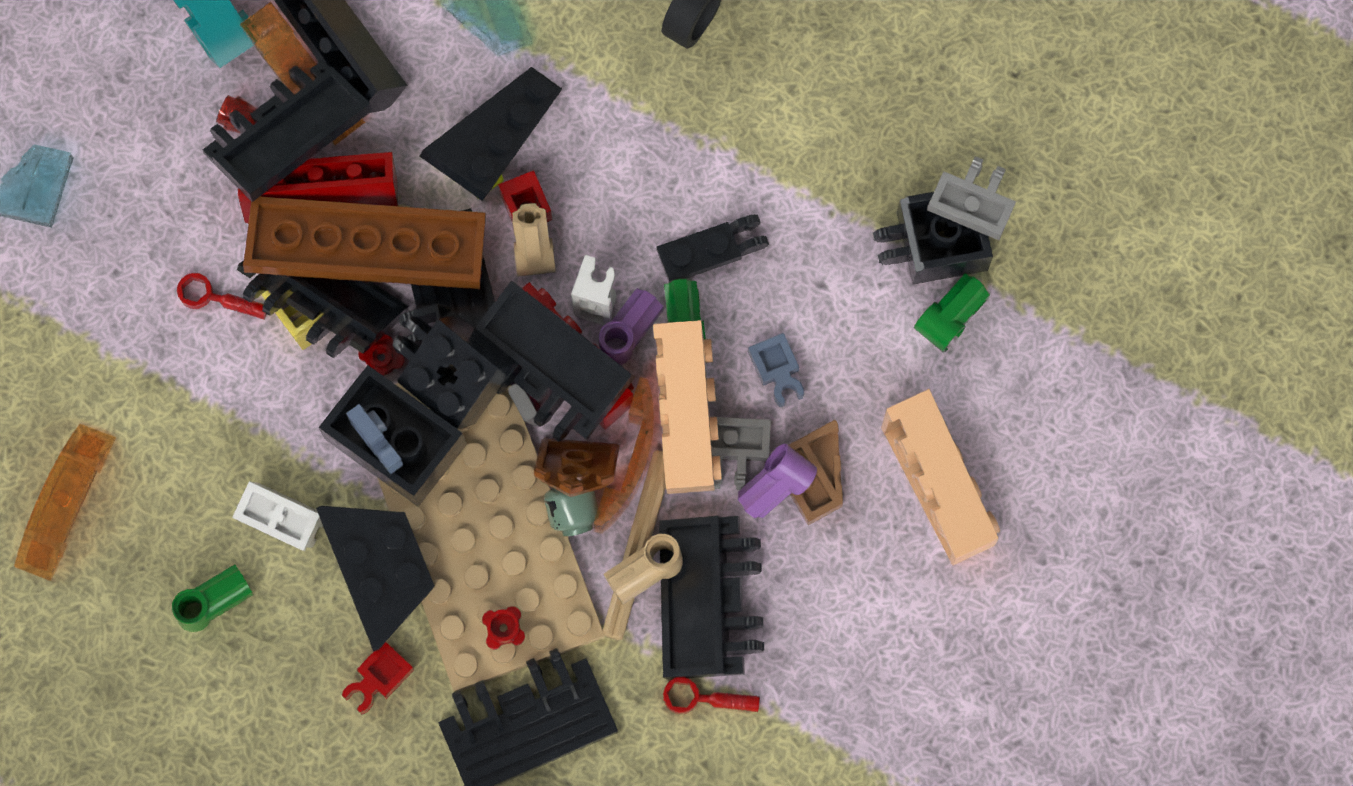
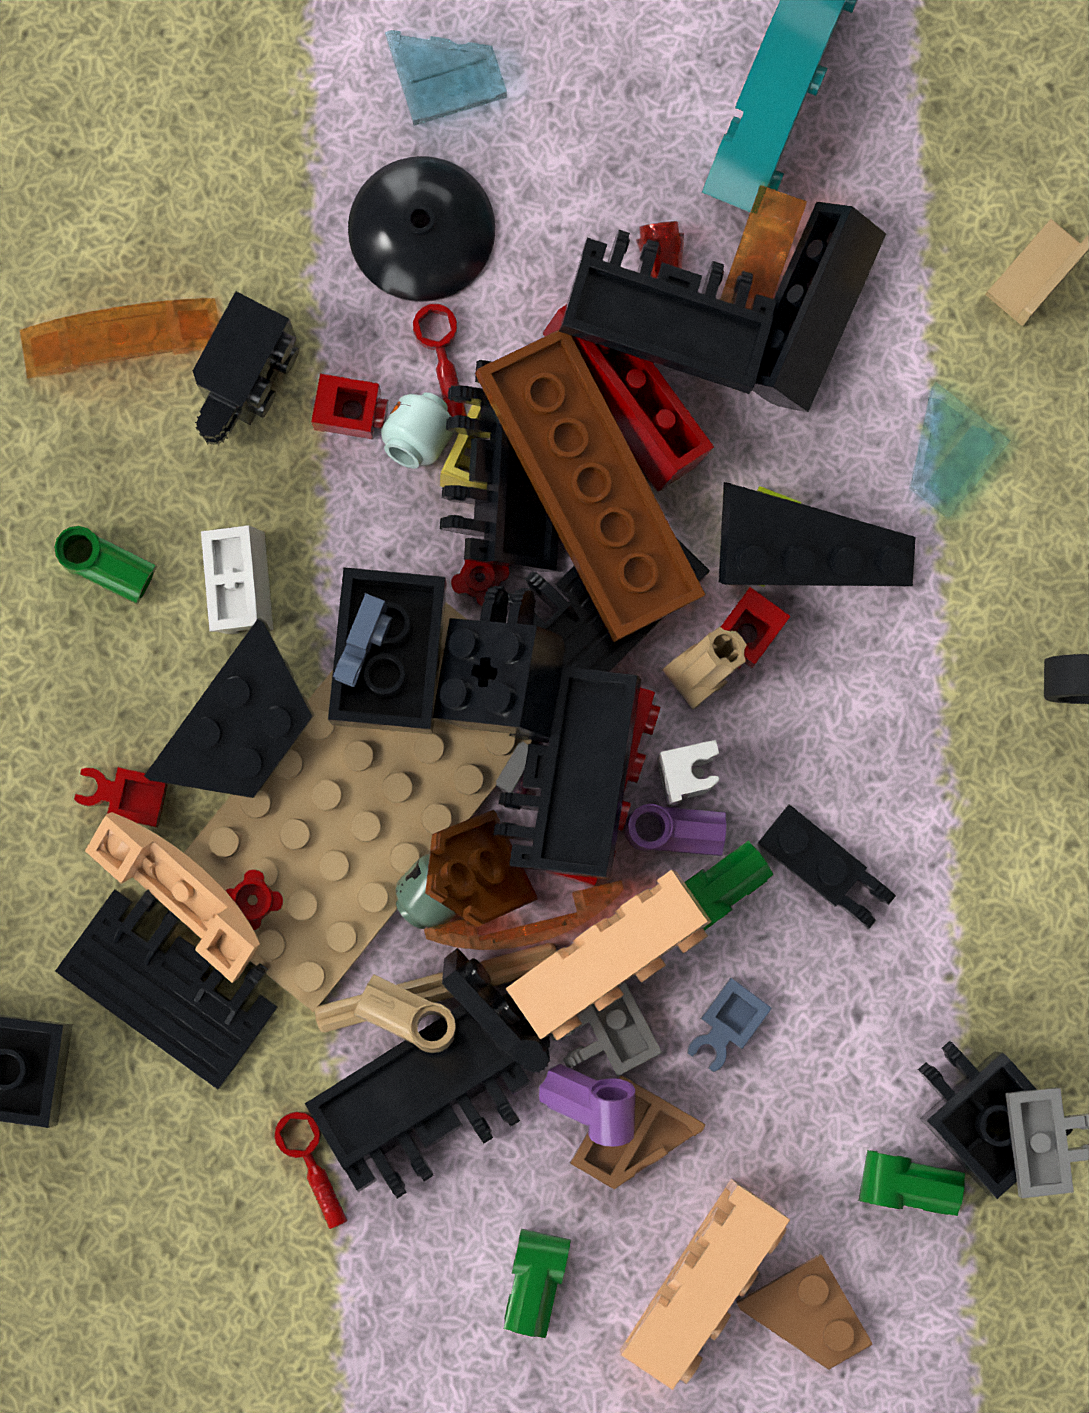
camera: 55 degrees right, 10 degrees up
(137, 280) = (427, 260): none -> black dish
(138, 427) = (241, 366): none -> black hinge
(196, 374) = (332, 397): none -> red brick
(256, 339) = (416, 430): none -> light aqua head
(466, 670) = (181, 886): none -> light nougat slope
(680, 508) = (495, 1013): none -> black hinge
(869, 587) = (537, 1271): none -> green piece
(1000, 426) = (809, 1313): none -> medium nougat wing

